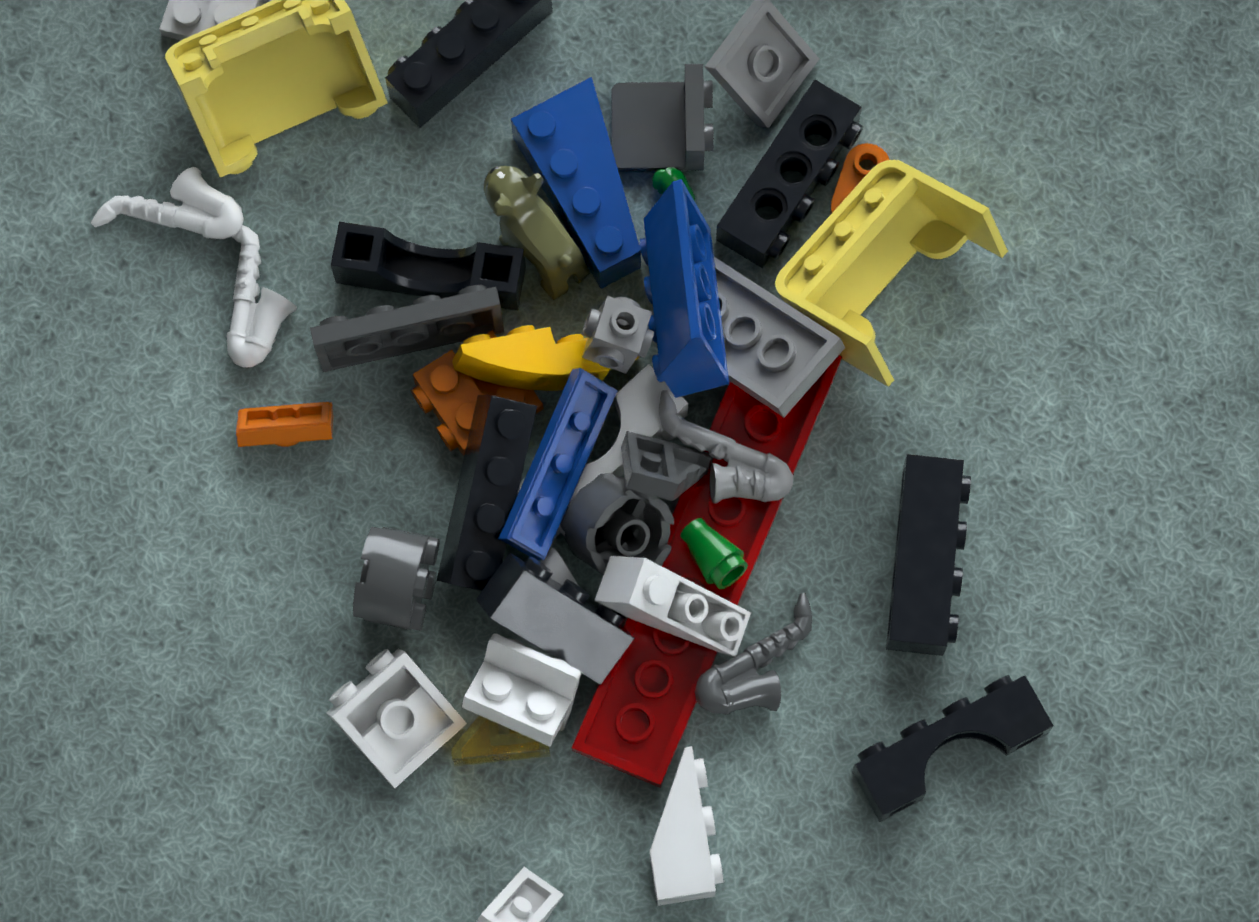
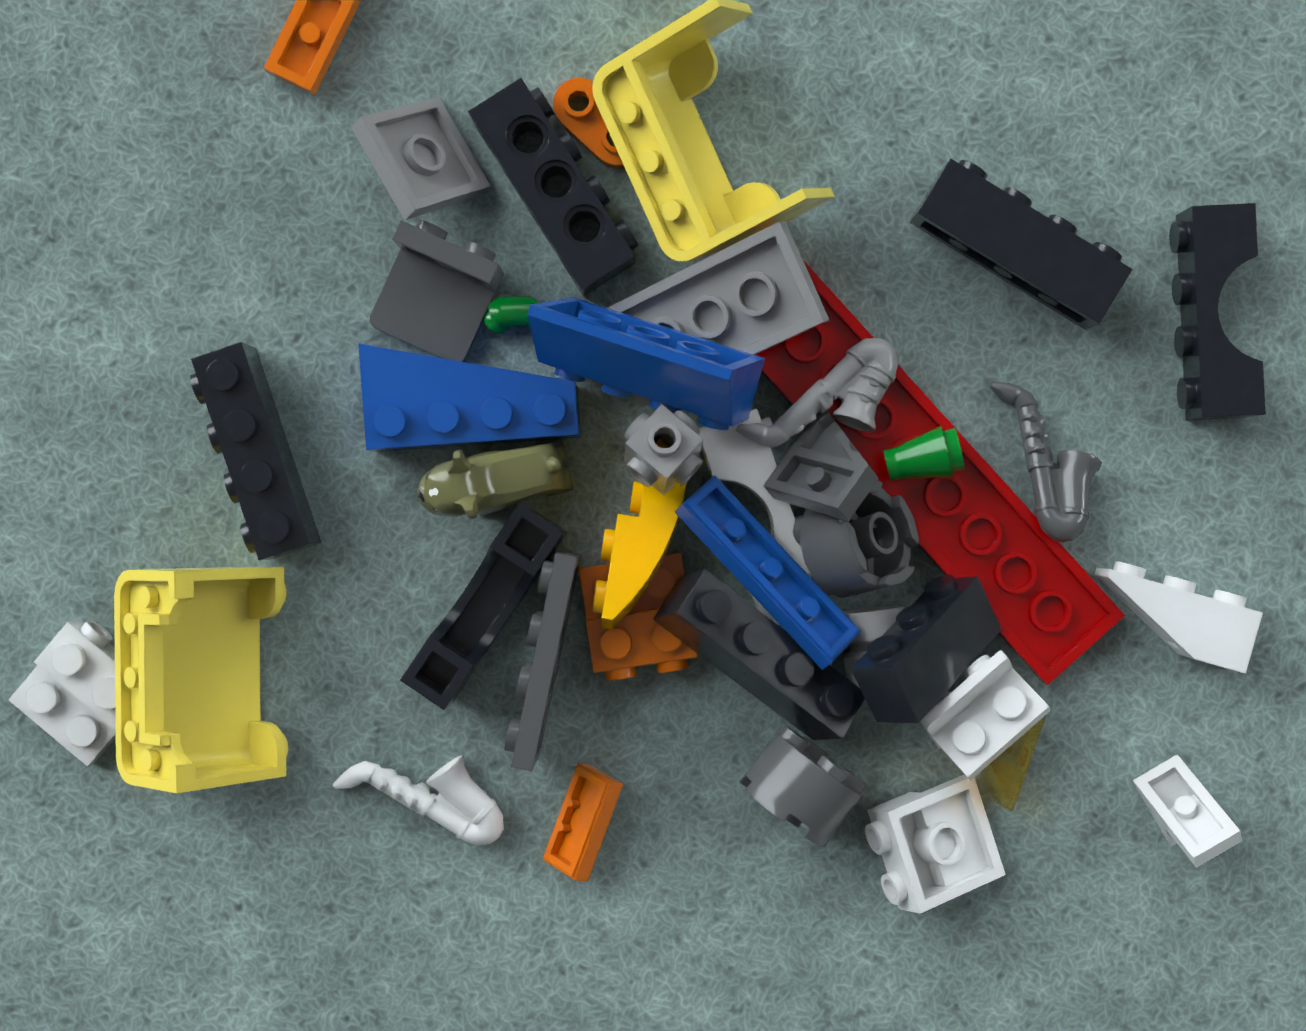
camera: 70 degrees left, 15 degrees up
(202, 210) = (314, 808): white piece -> none
(672, 604) = (964, 526): white slope -> none

